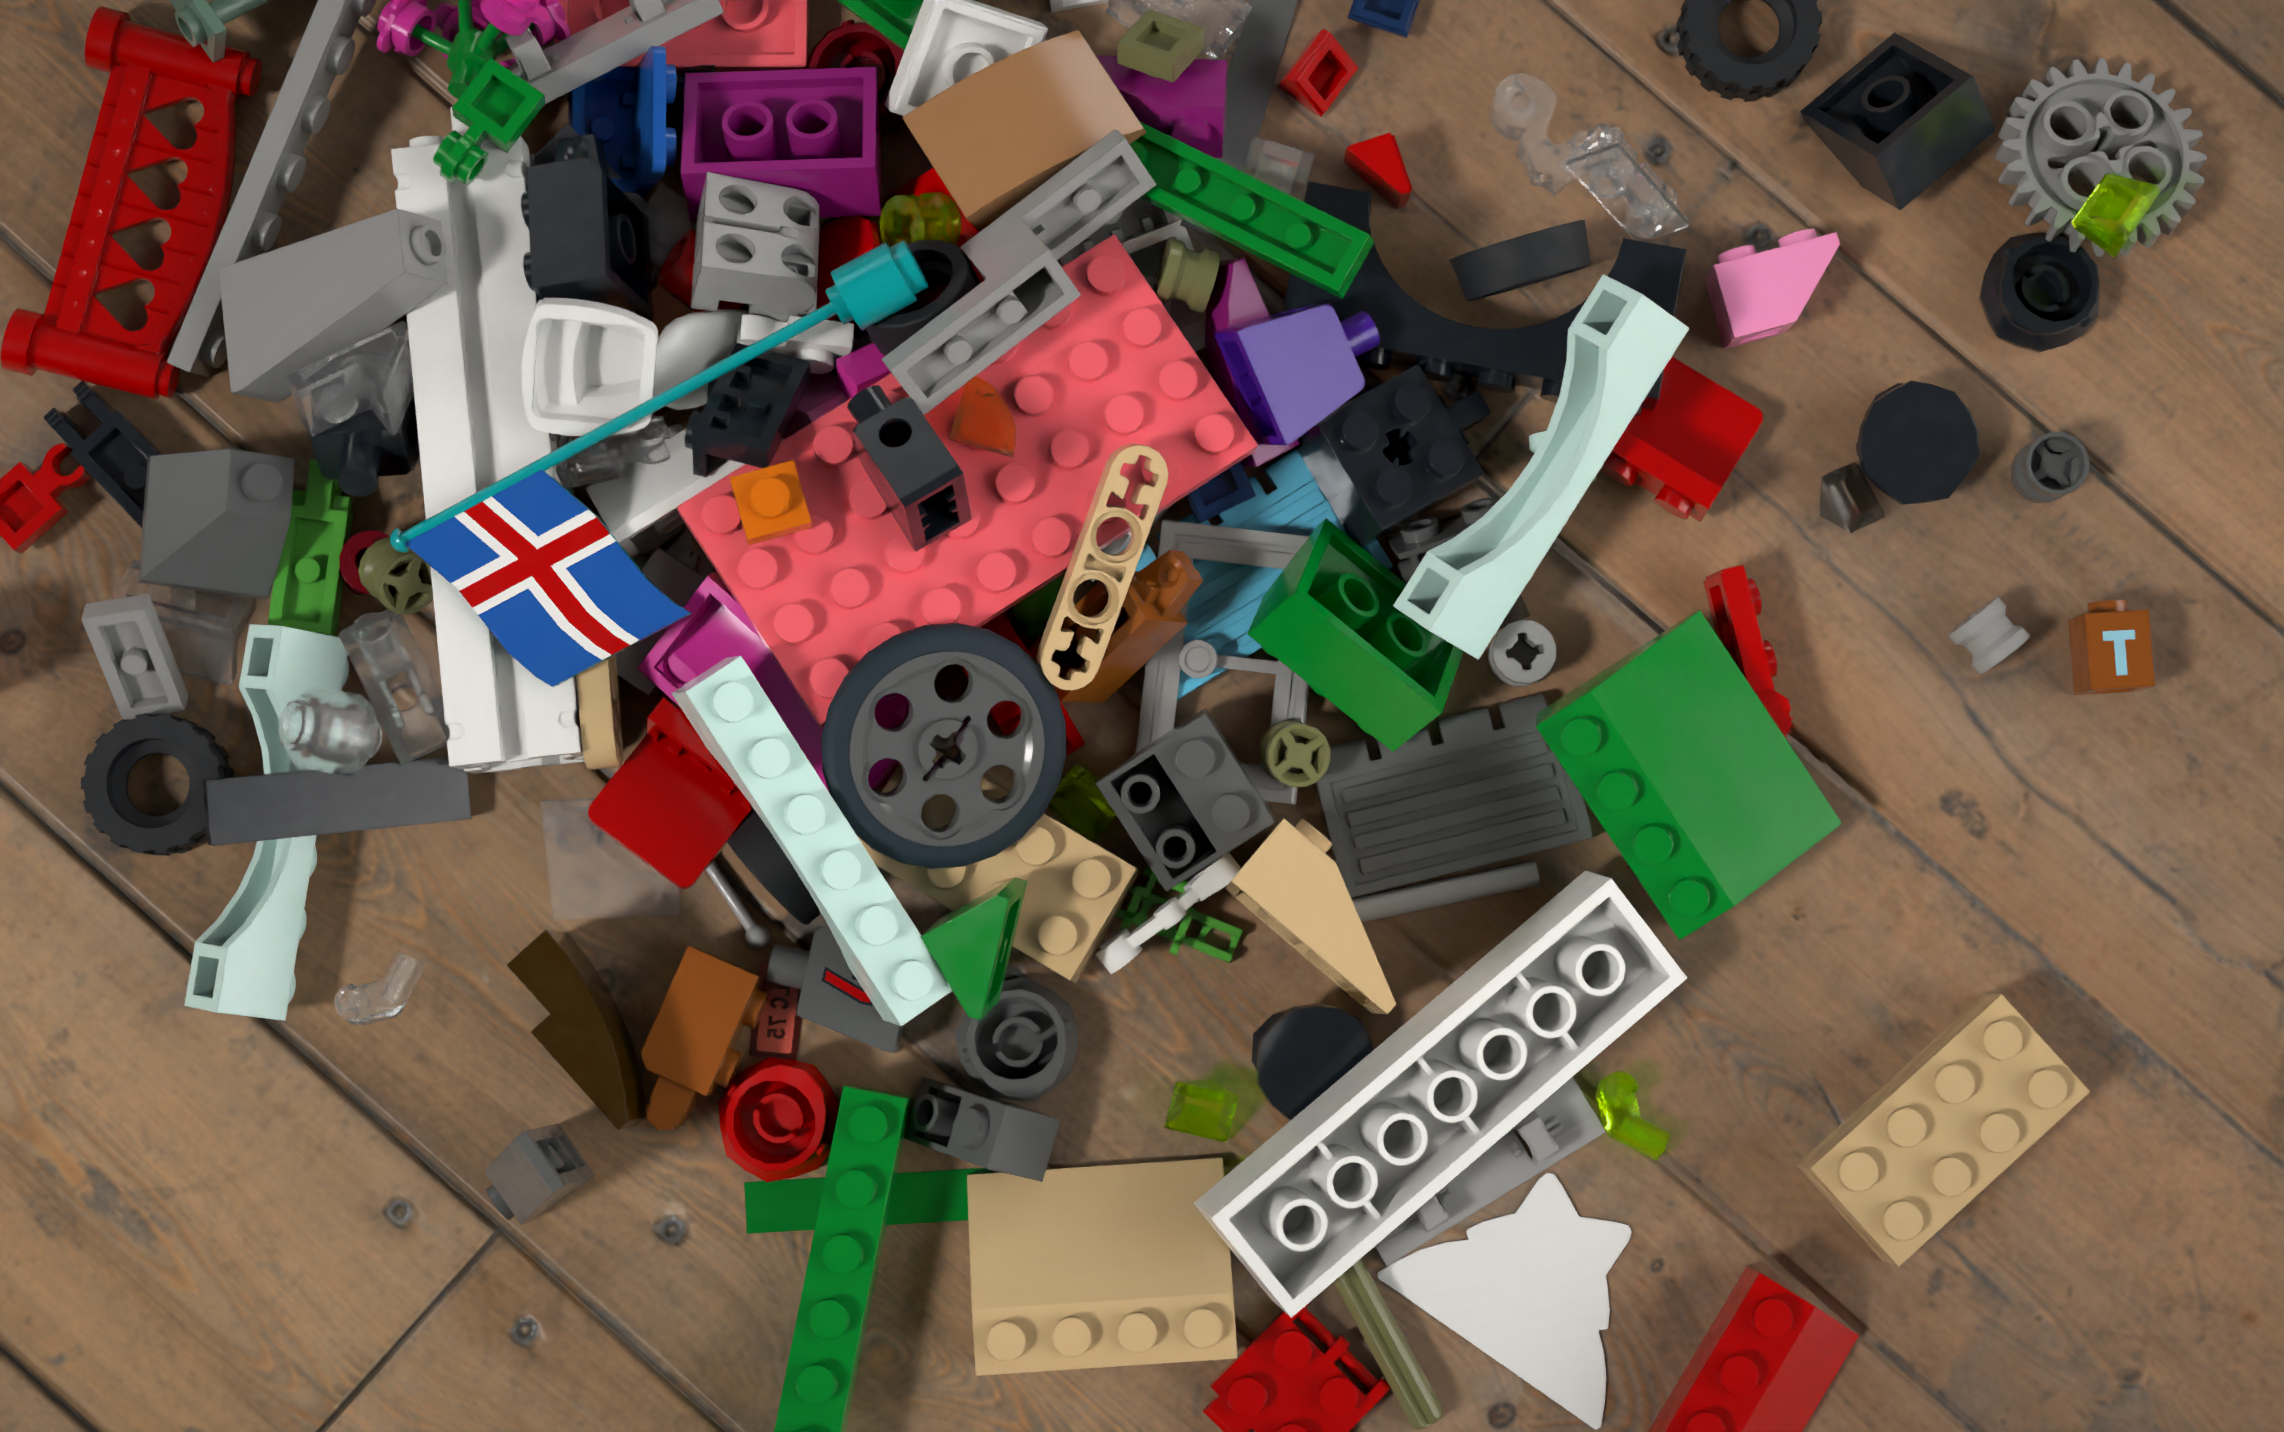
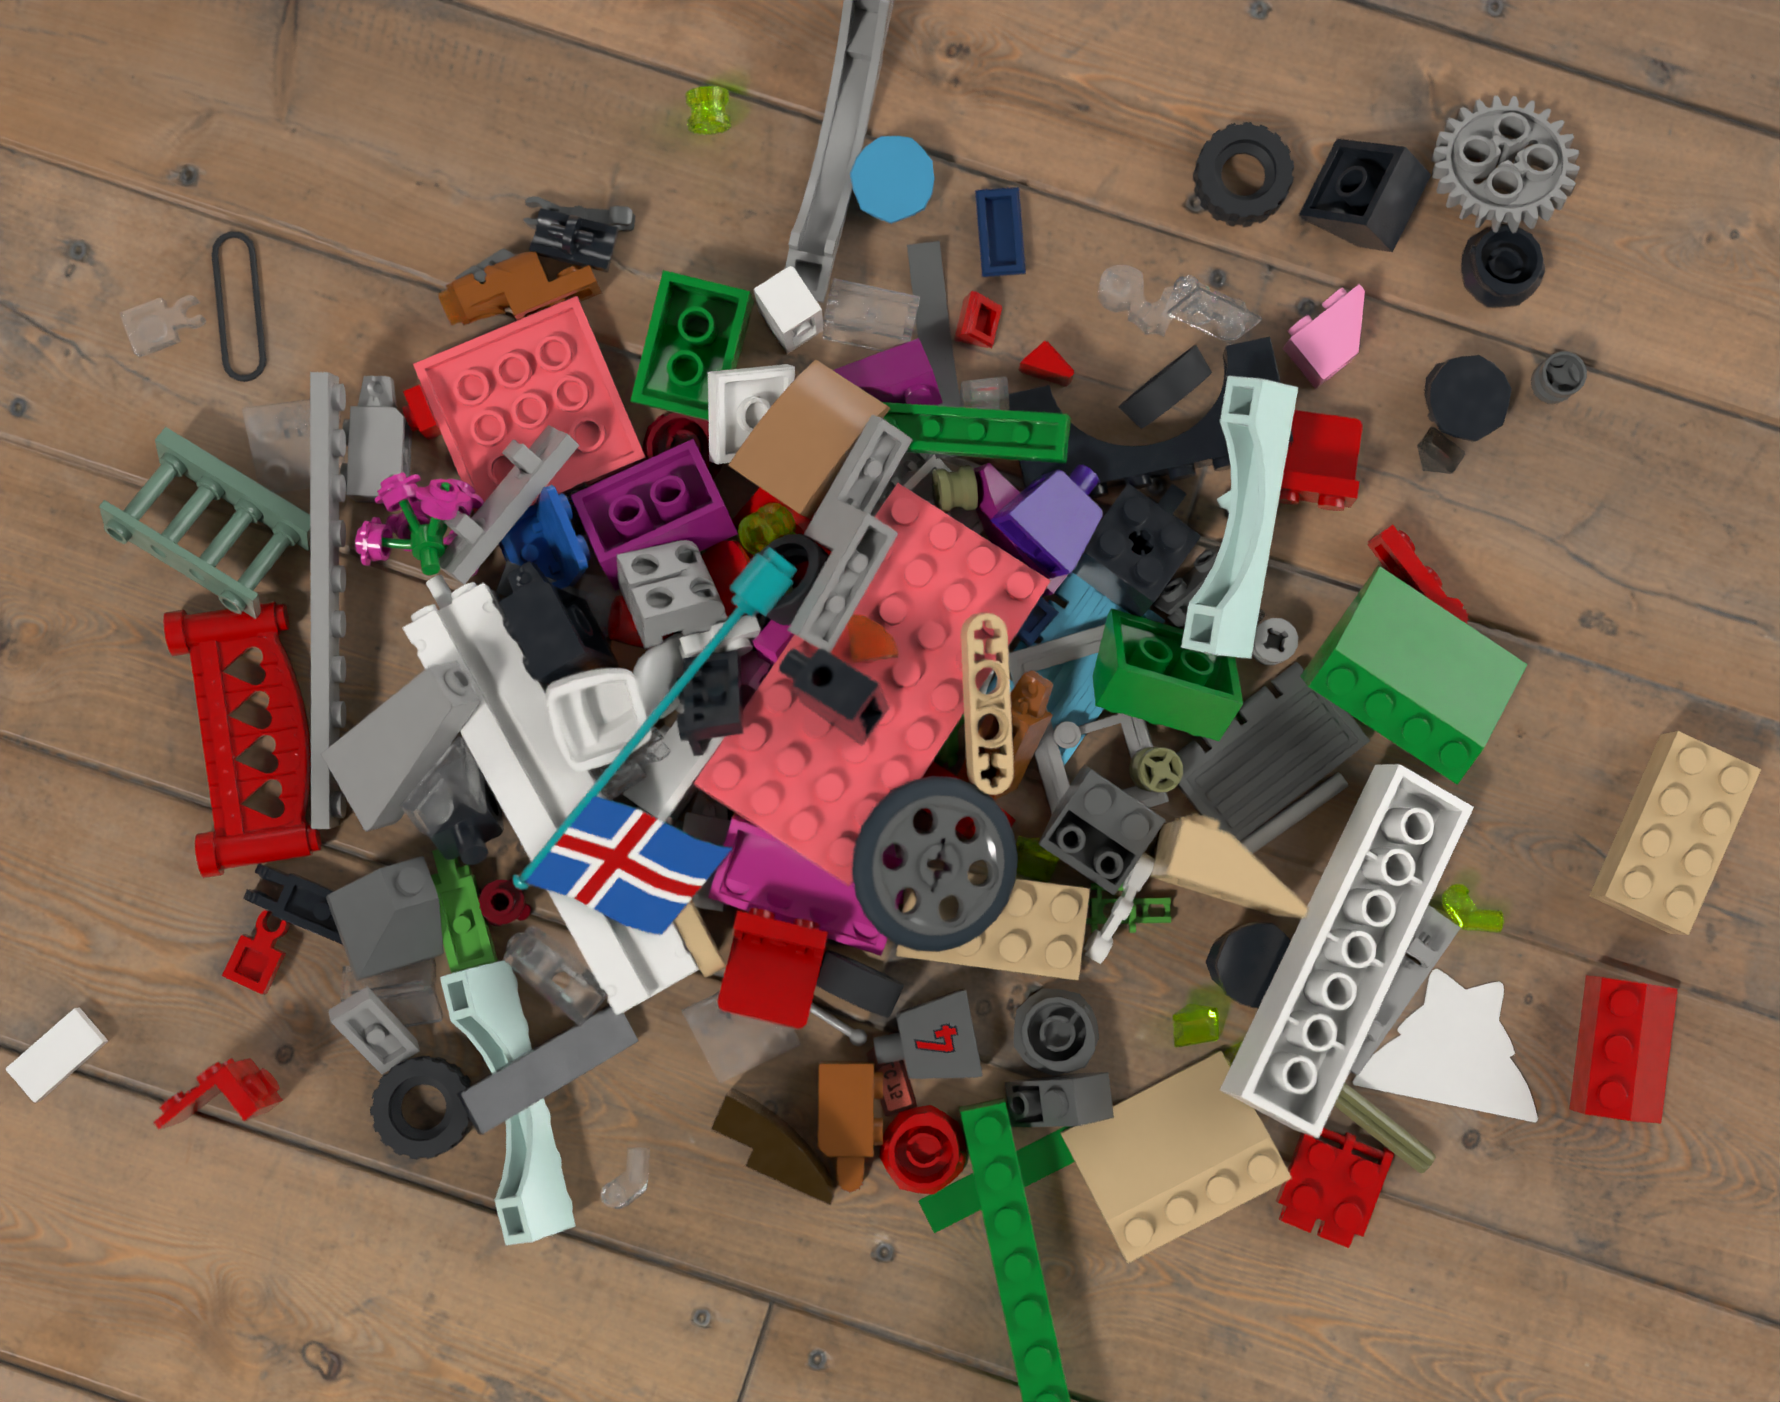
camera: 25 degrees left, 0 degrees up
(330, 731) = (525, 1025): clear head -> none
(400, 592) = (530, 914): olive wheel -> none
(494, 108) = (461, 572): green plate -> none
(535, 1173) = (784, 1256): dark grey slope -> none
(770, 502) = (755, 754): orange plate -> none
(796, 807) = (840, 934): light aqua arch -> none
(976, 944) = (1008, 983): green slope -> none
(1160, 45) = (873, 347): olive plate -> none
(1988, 635) = (1566, 502): light grey wheel -> none
(2111, 649) = (1648, 478): dark orange brick -> none
(2115, 211) = (1533, 195): clear neon green slope -> none

